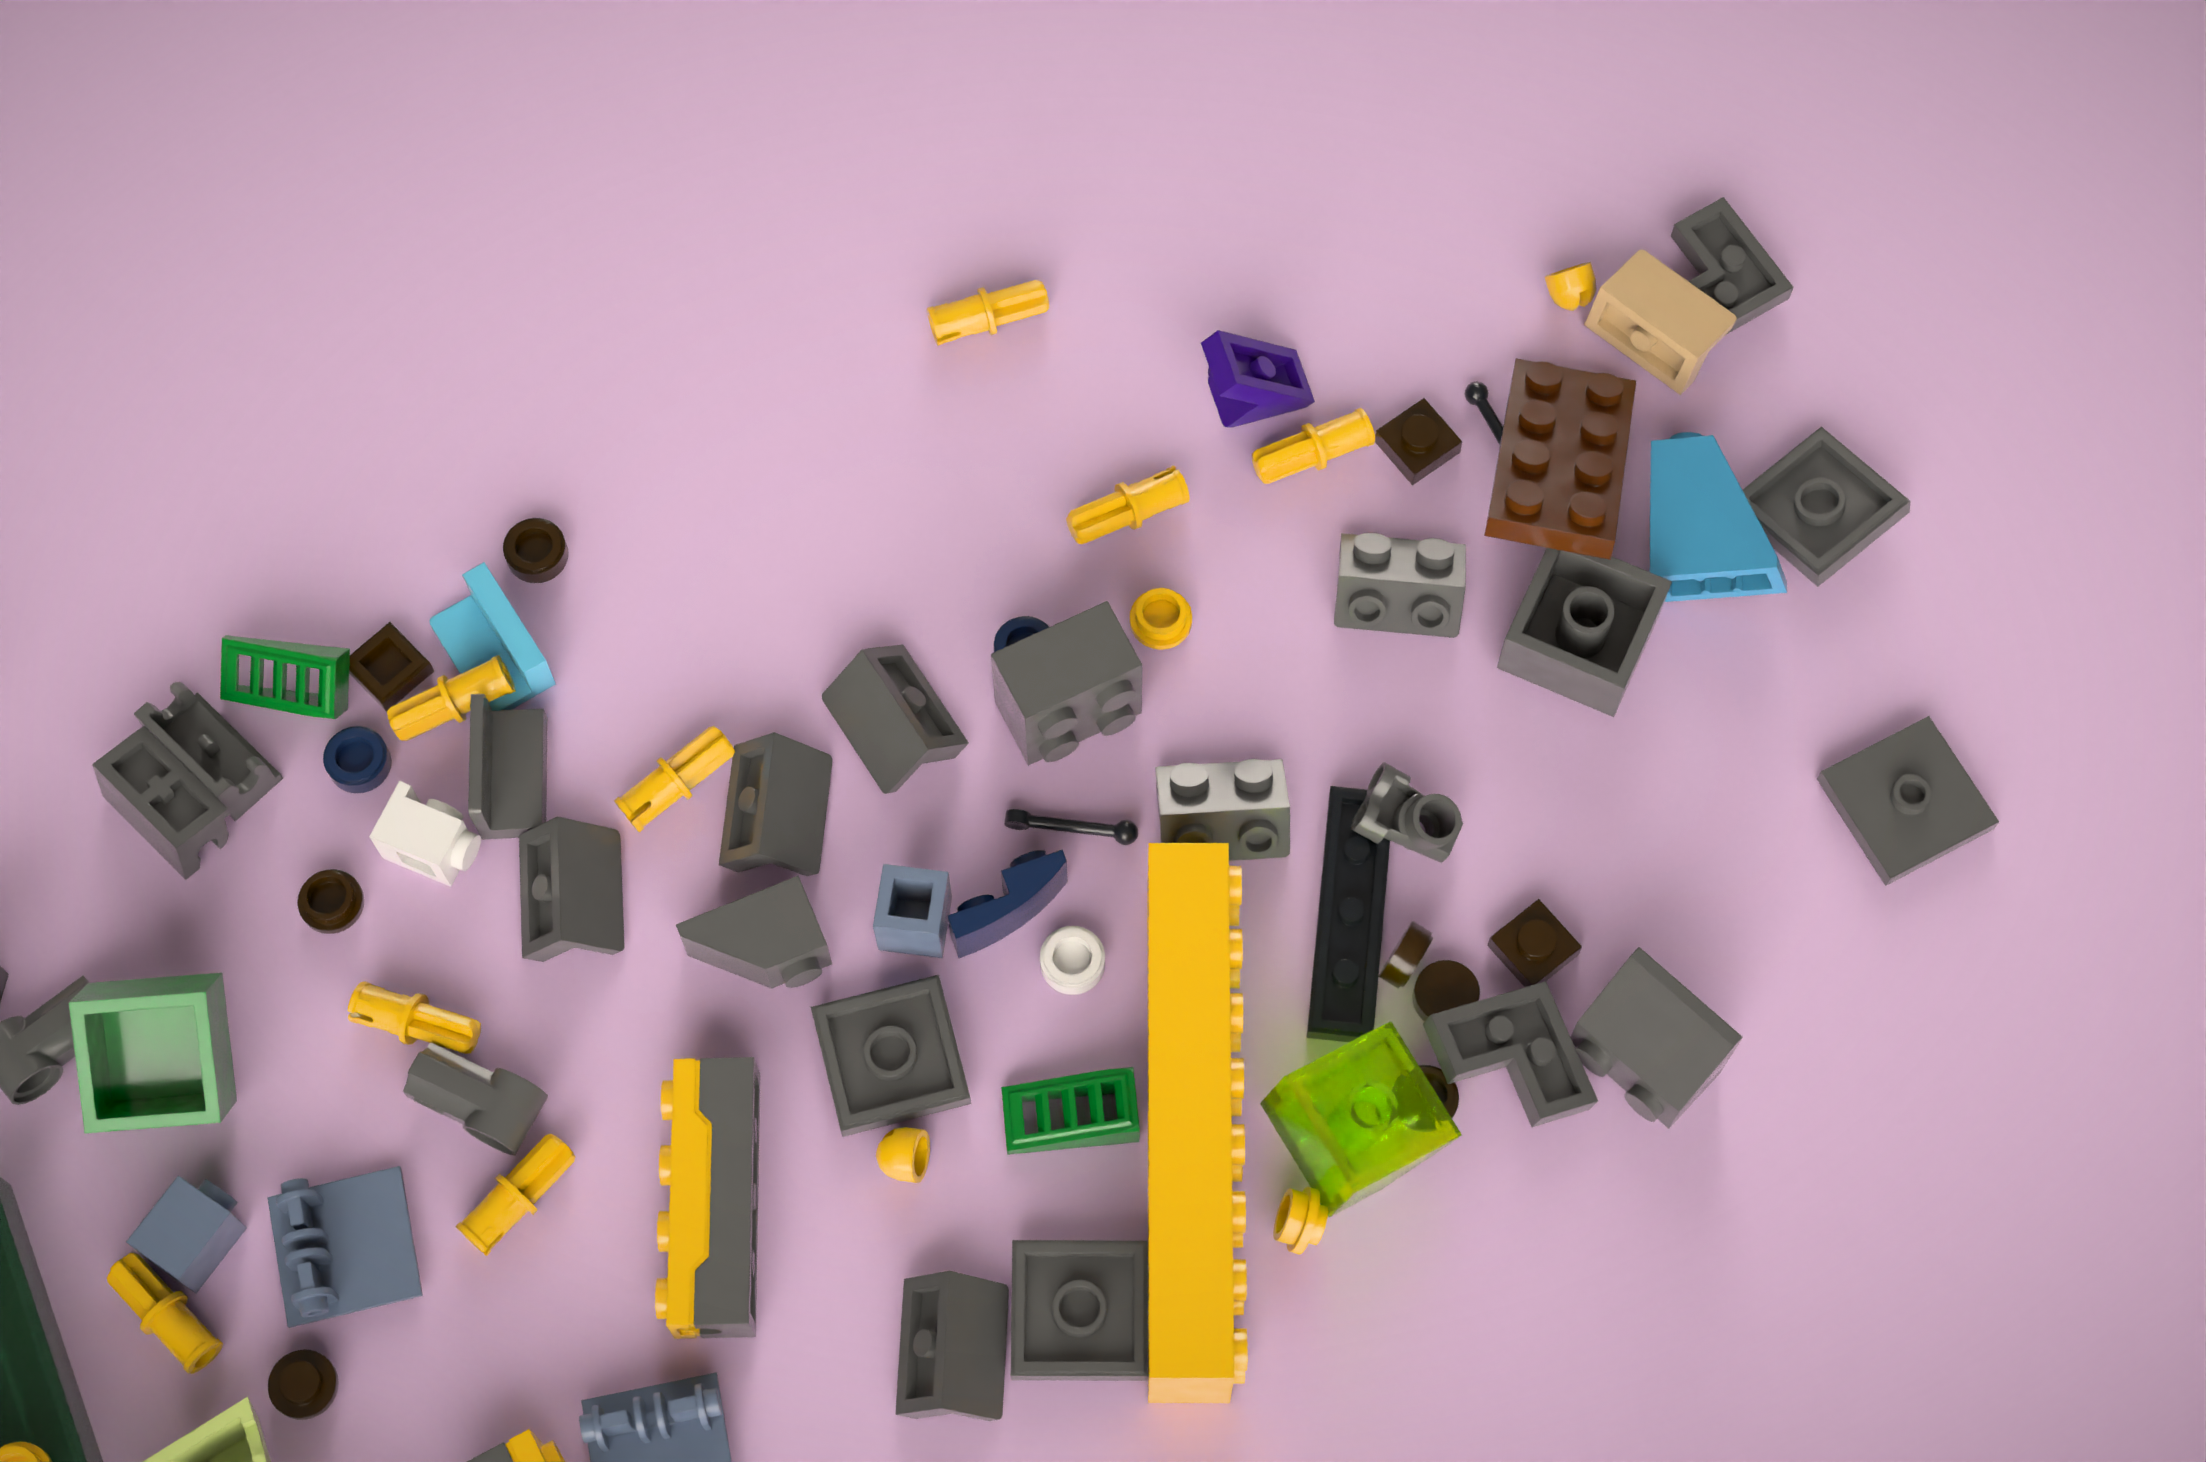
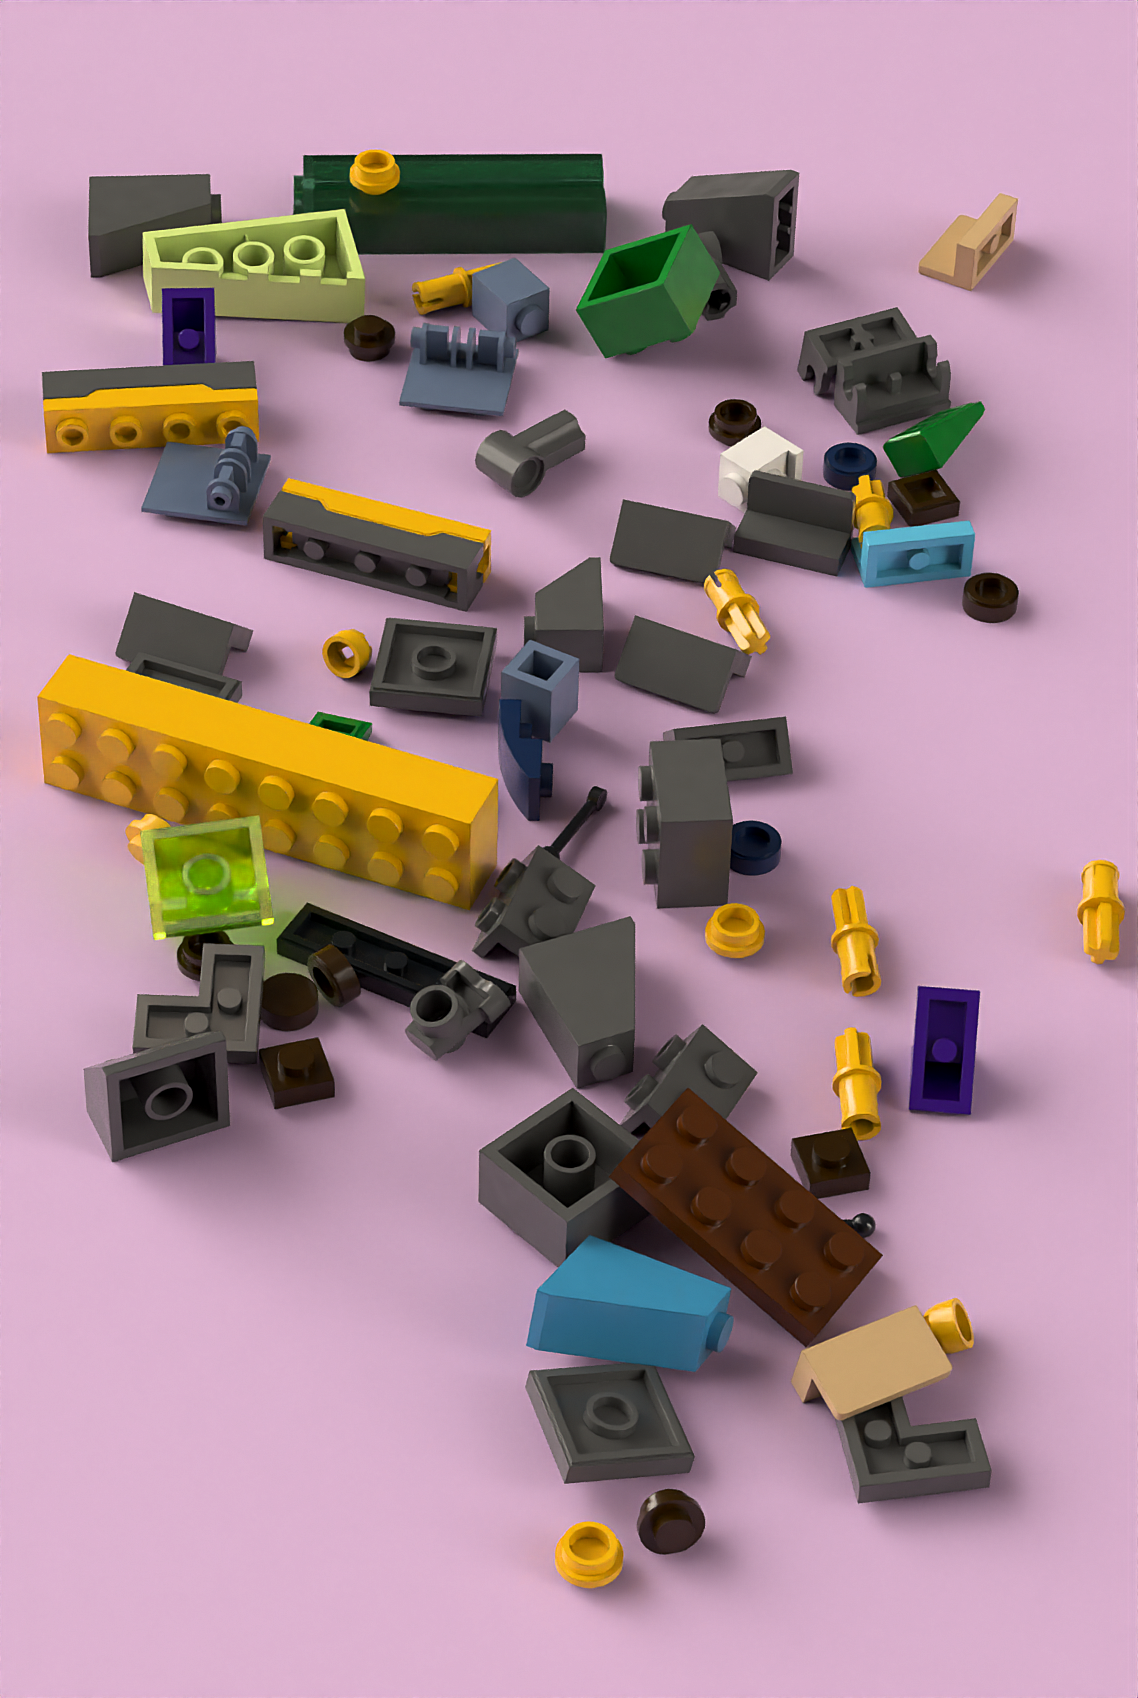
camera: 110 degrees right, 25 degrees down
(412, 1018) = (613, 438): yellow axle -> none
(516, 1193) = (444, 457): yellow axle -> none
(1326, 704) = (585, 998): none -> dark grey slope
(1899, 421) = (670, 1522): none -> dark brown plate
(1907, 800) = (278, 1379): dark grey plate -> none
(1960, 475) = (589, 1555): none -> yellow plate

